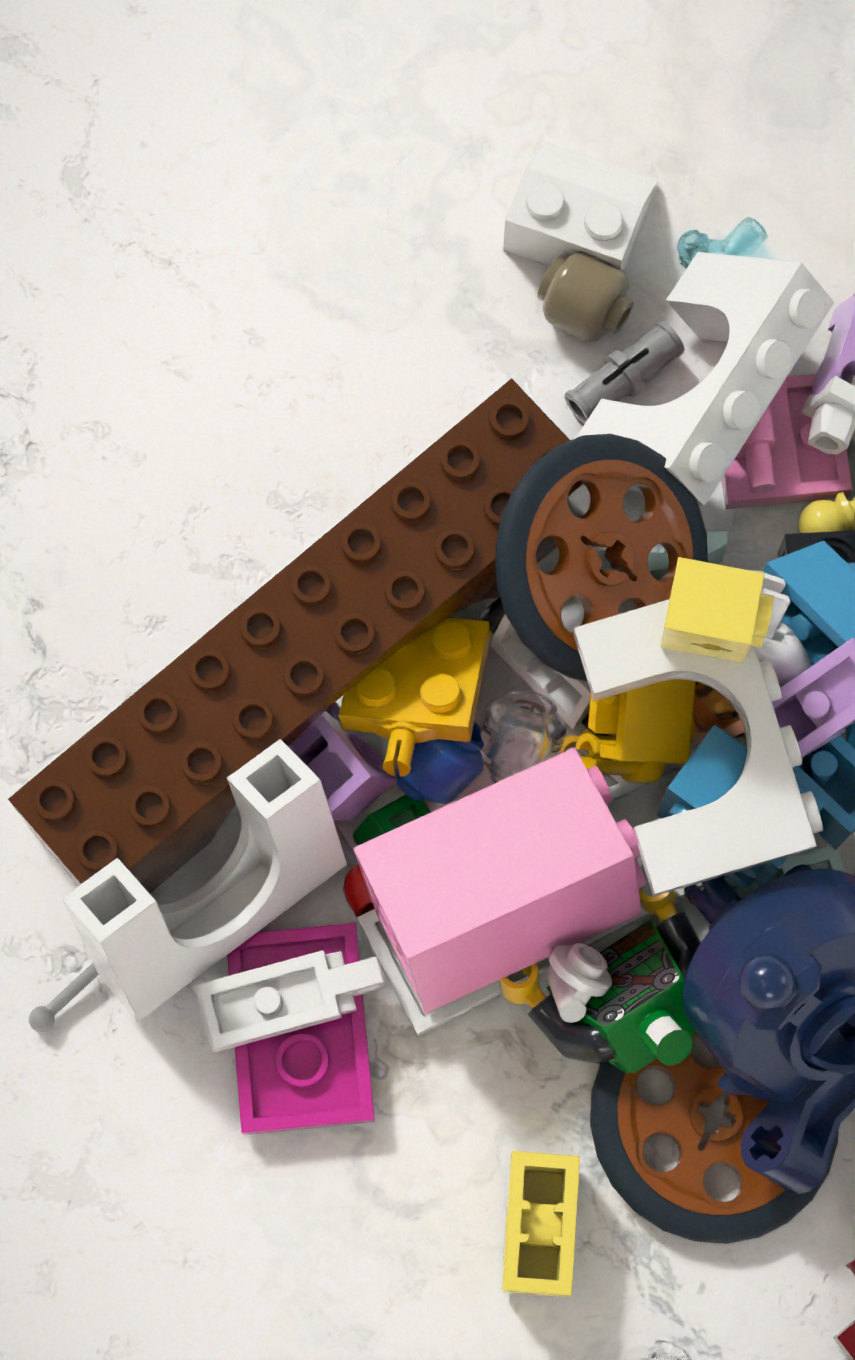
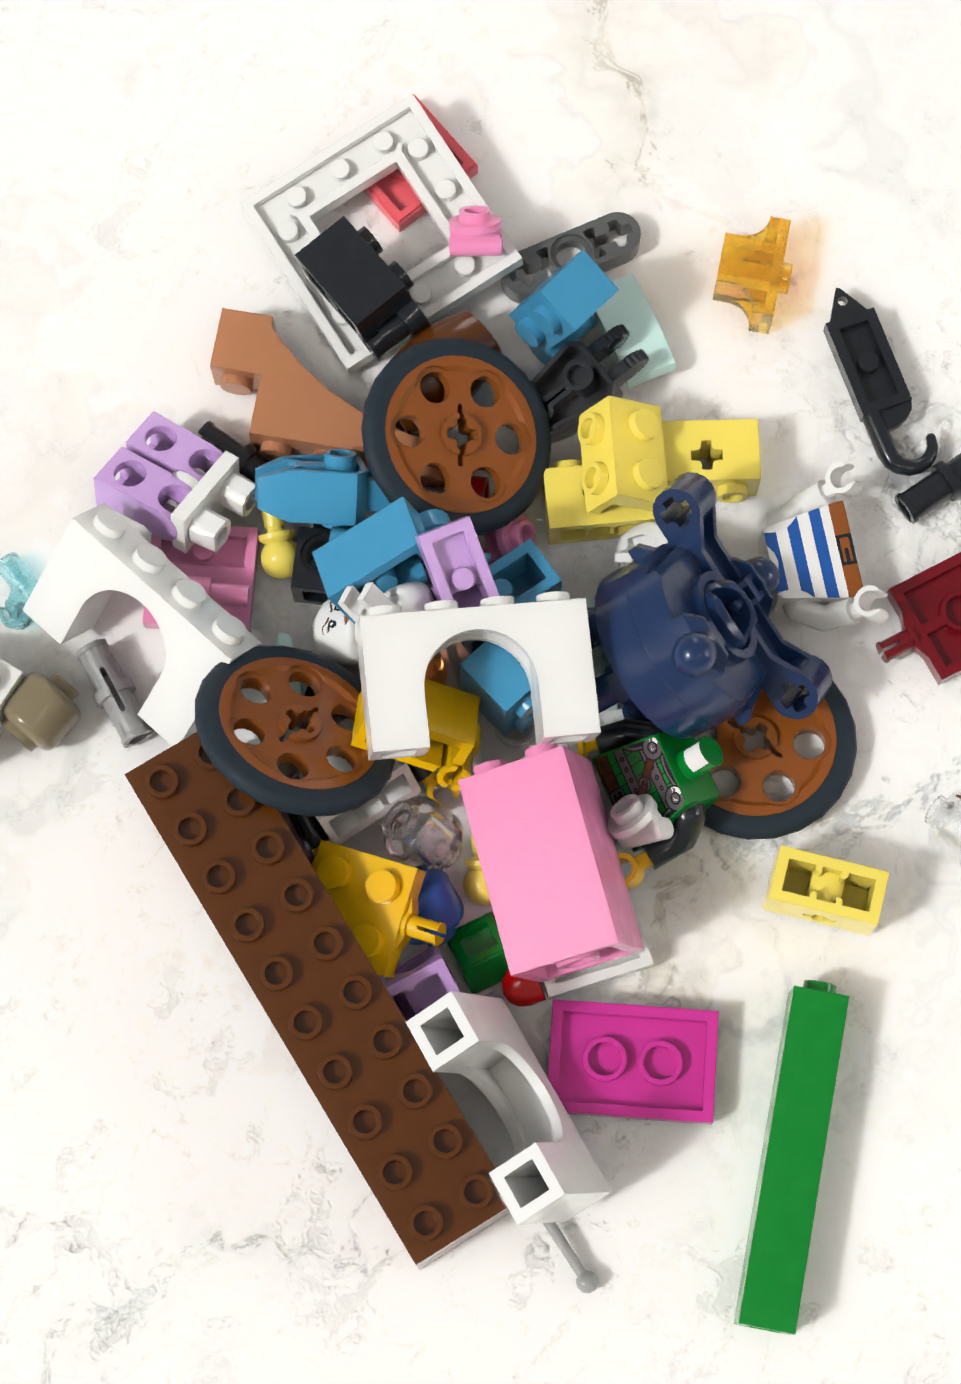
camera: 80 degrees left, 0 degrees up
(215, 1233) = (792, 1159): none -> green brick
(283, 997) = (610, 1066): white hinge -> none
(716, 610) = (395, 629): light yellow brick -> none

